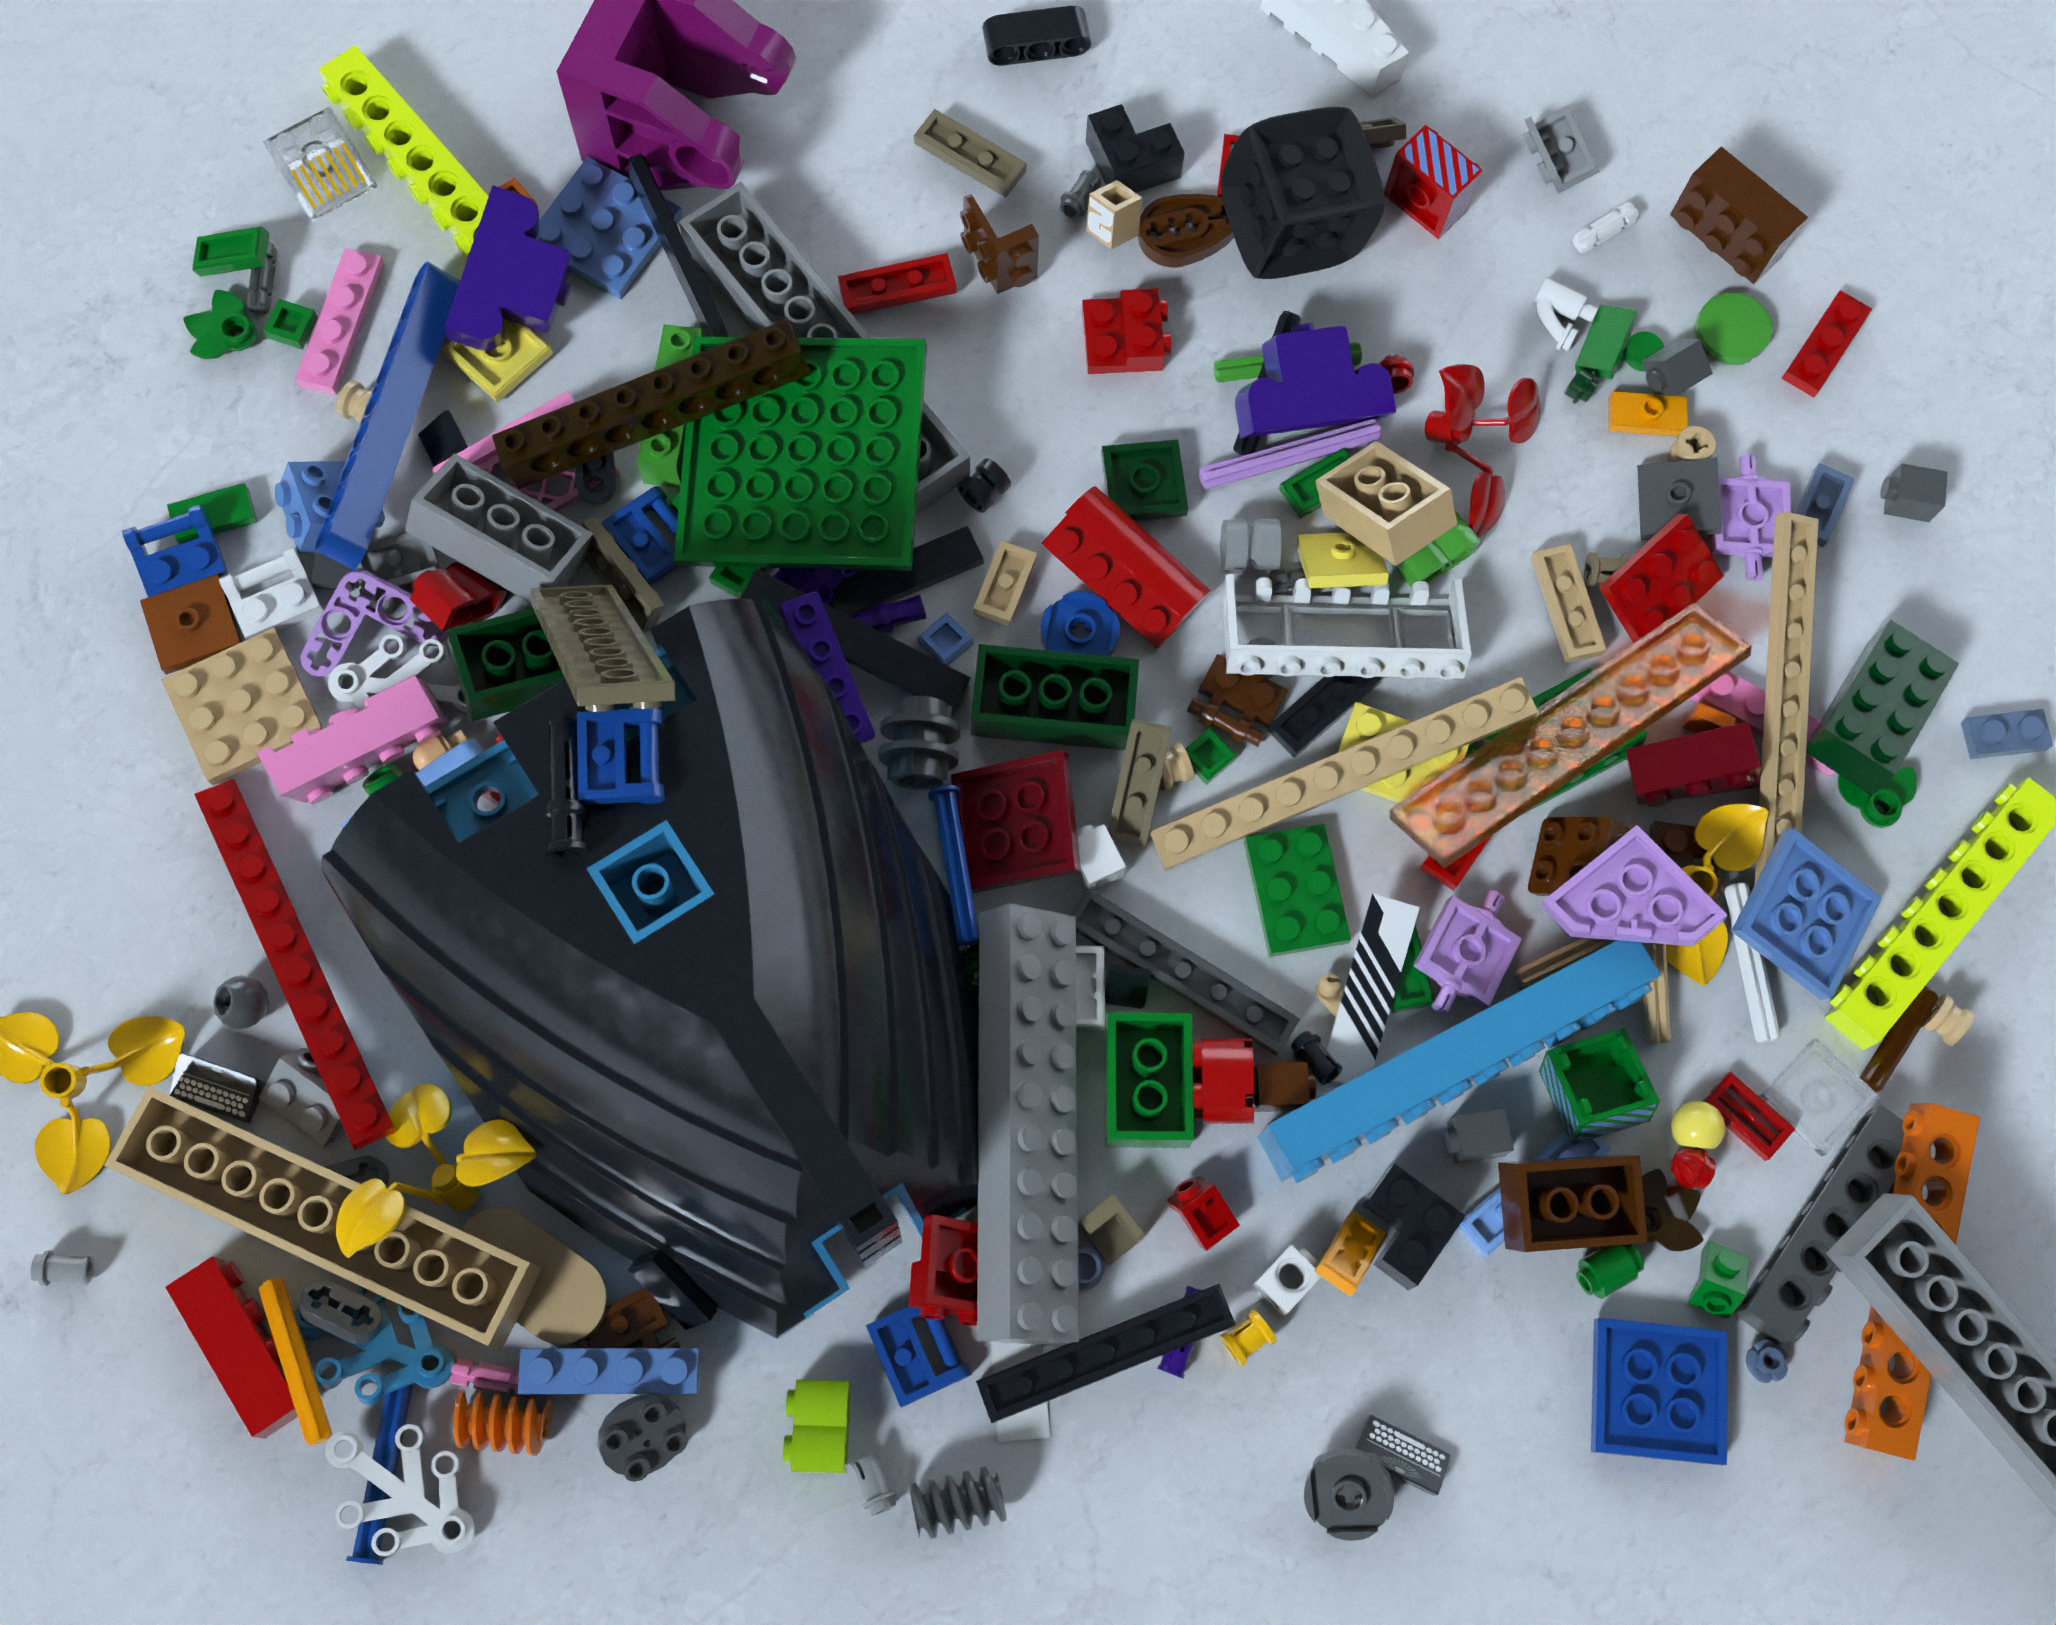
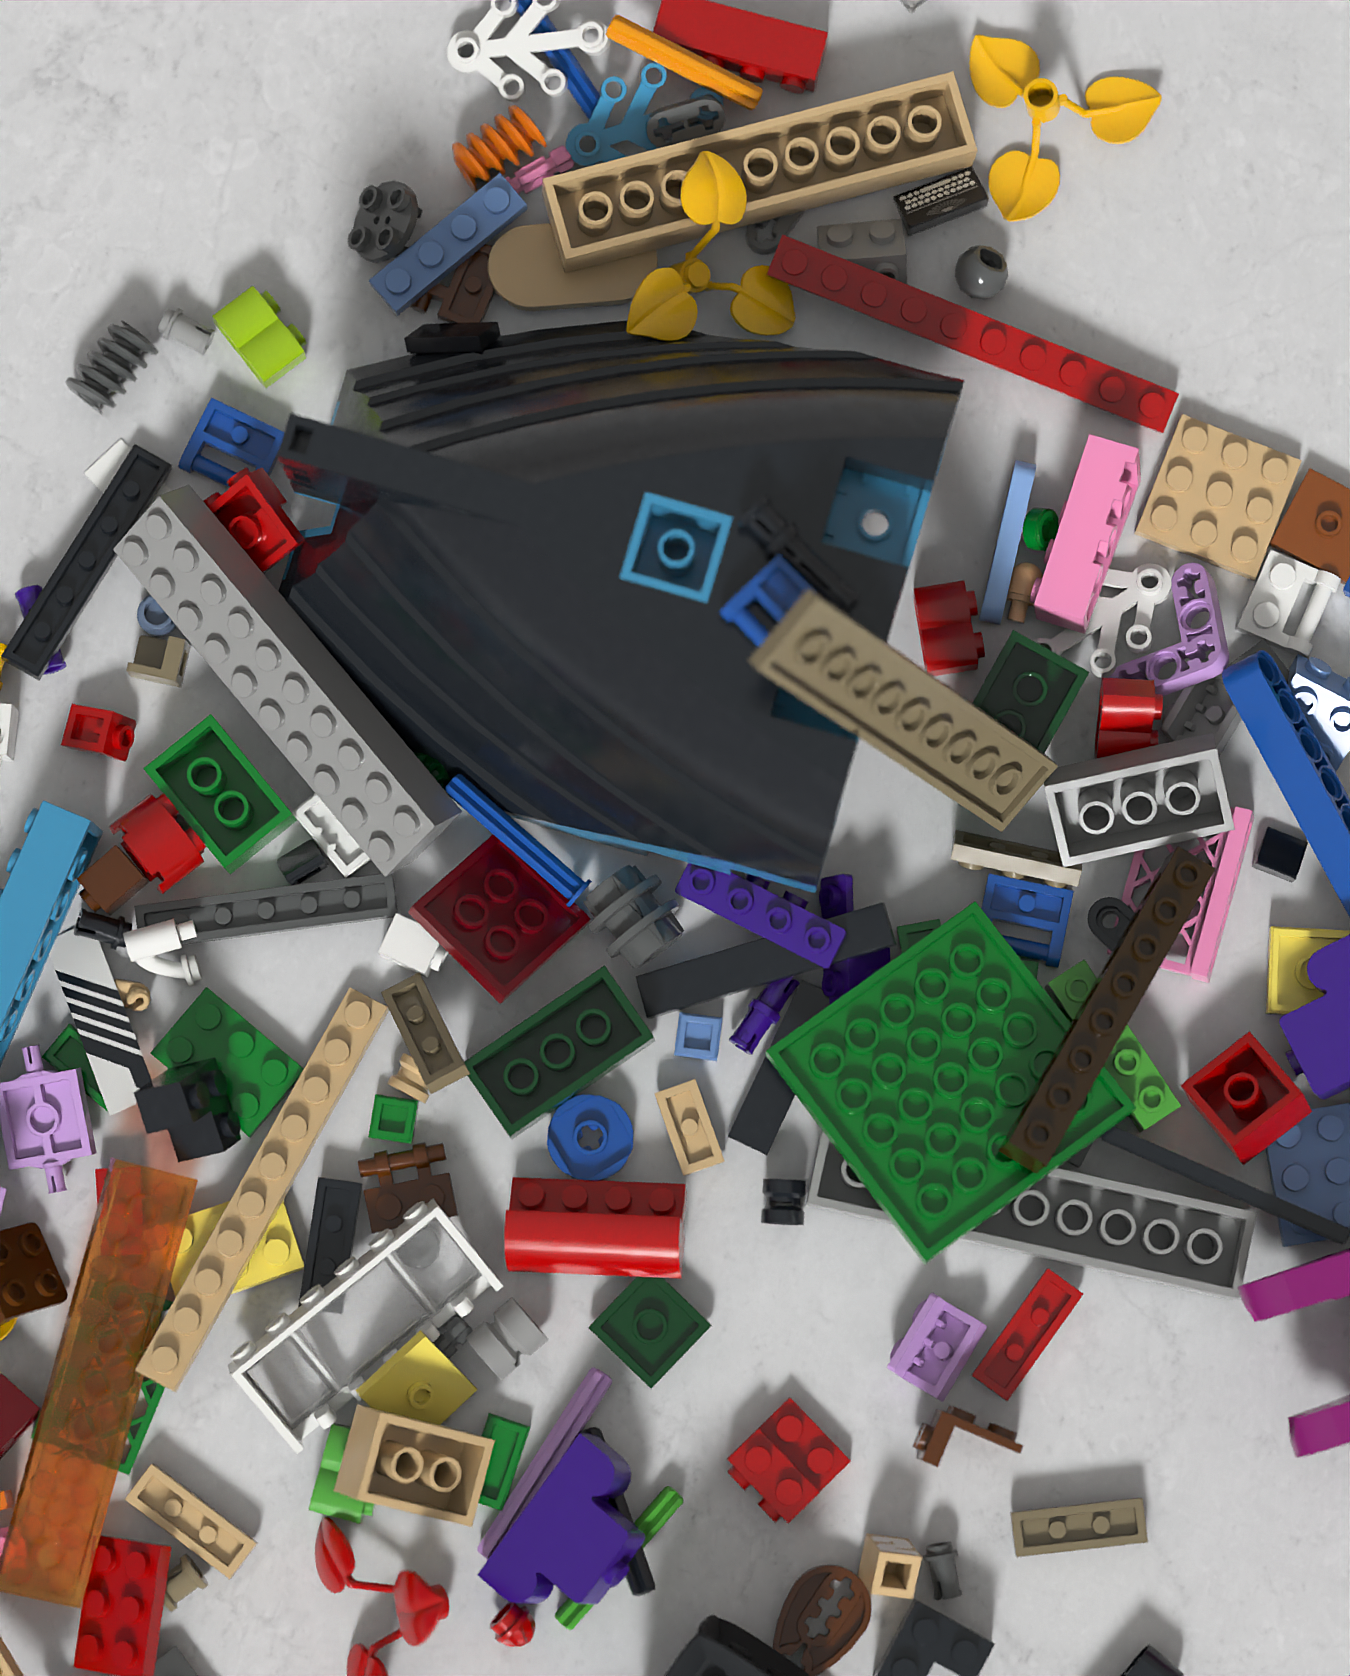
camera: 150 degrees right, 10 degrees up
(616, 298) = (1246, 1098): none -> red brick
(963, 318) = (935, 1346): none -> lavender bracket
(1286, 1008) = (149, 941): none -> white plant
(1355, 865) = (193, 1108): none -> black brick

